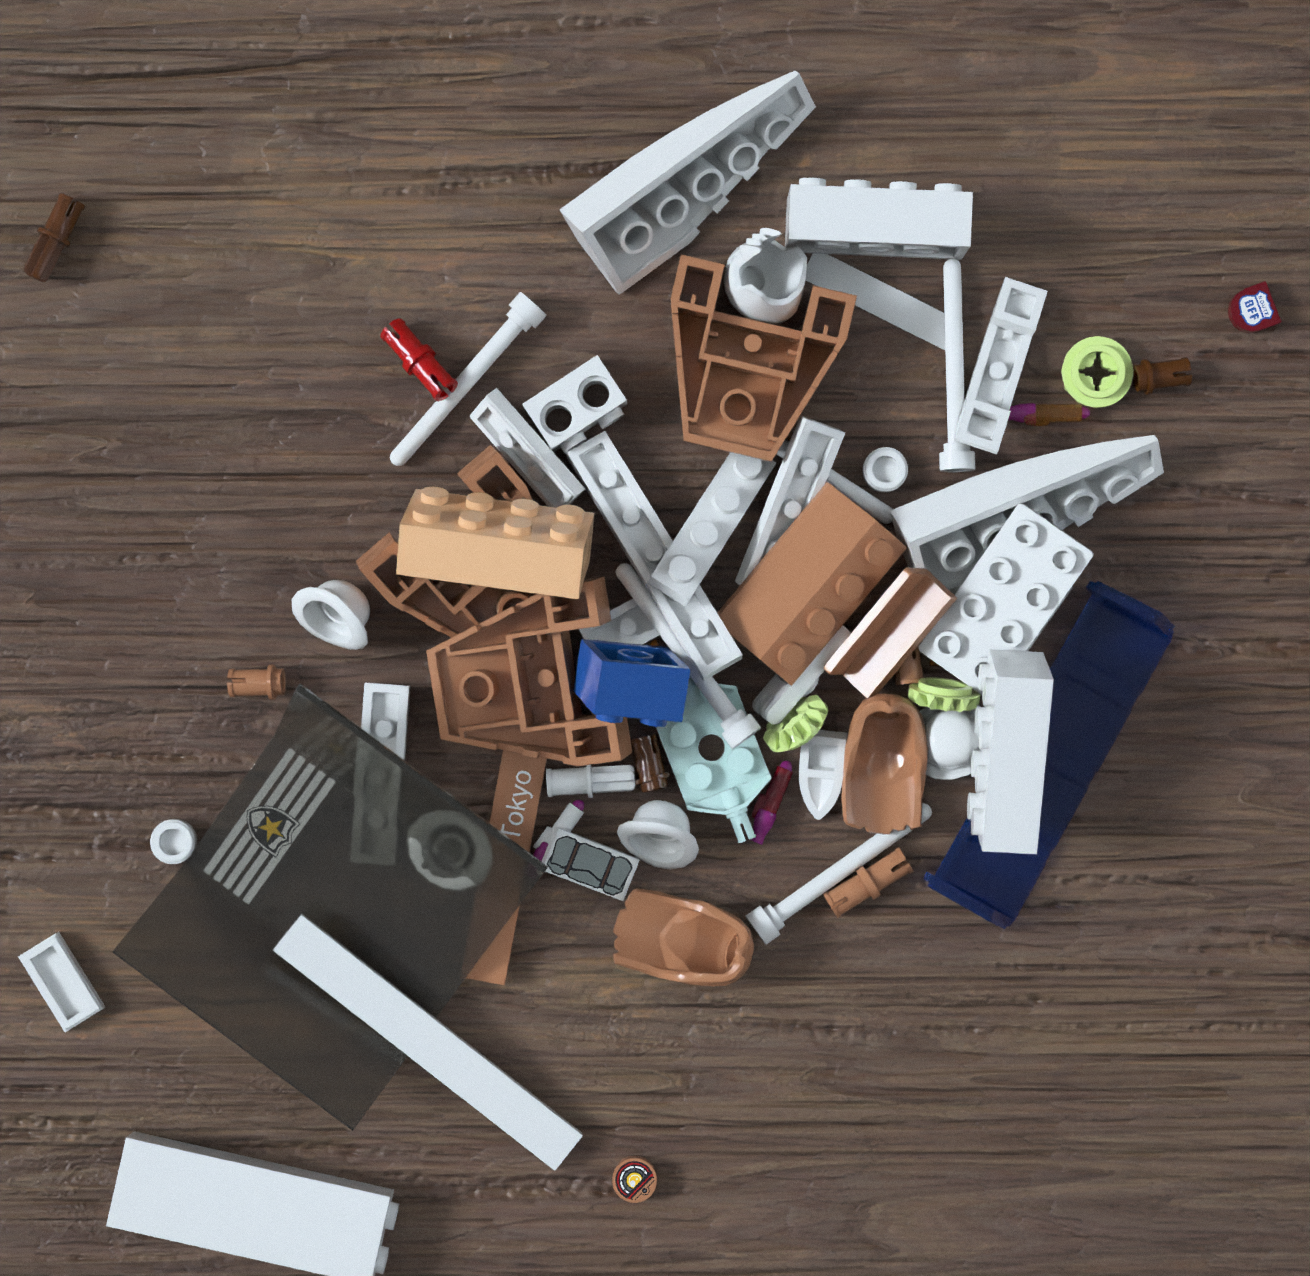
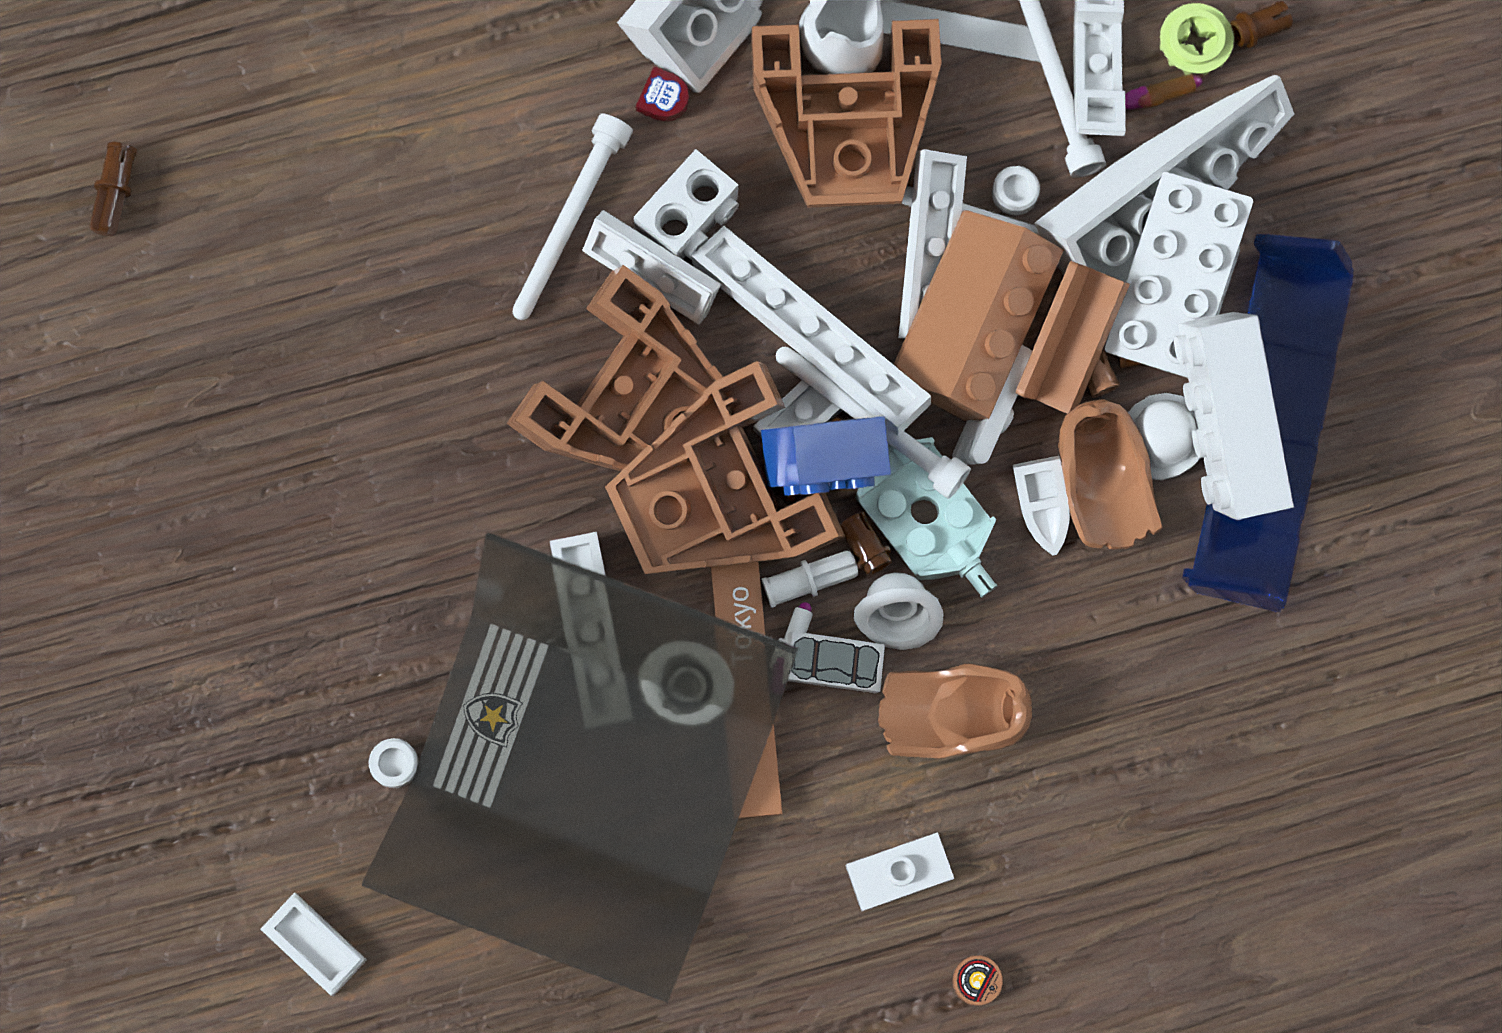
camera: 25 degrees left, 10 degrees down
(257, 682) = (437, 574): nougat pin -> none
(334, 613) = (498, 480): white hat -> none
(419, 359) = (516, 206): red pin -> none
(428, 1041) = (720, 893): white tile -> none
(495, 542) = (647, 348): light nougat brick -> none
(585, 288) = (663, 96): none -> tile
(594, 1064) = (899, 871): none -> white plate
(710, 526) = (858, 283): white plate -> none
(768, 804) = (999, 553): piece -> none
(770, 919) = (1037, 668): white piece -> none
(798, 726) = (1006, 460): yellowish green gear -> none
(868, 882) = (1126, 602): nougat pin -> none
(944, 694) = (1145, 387): yellowish green gear -> none

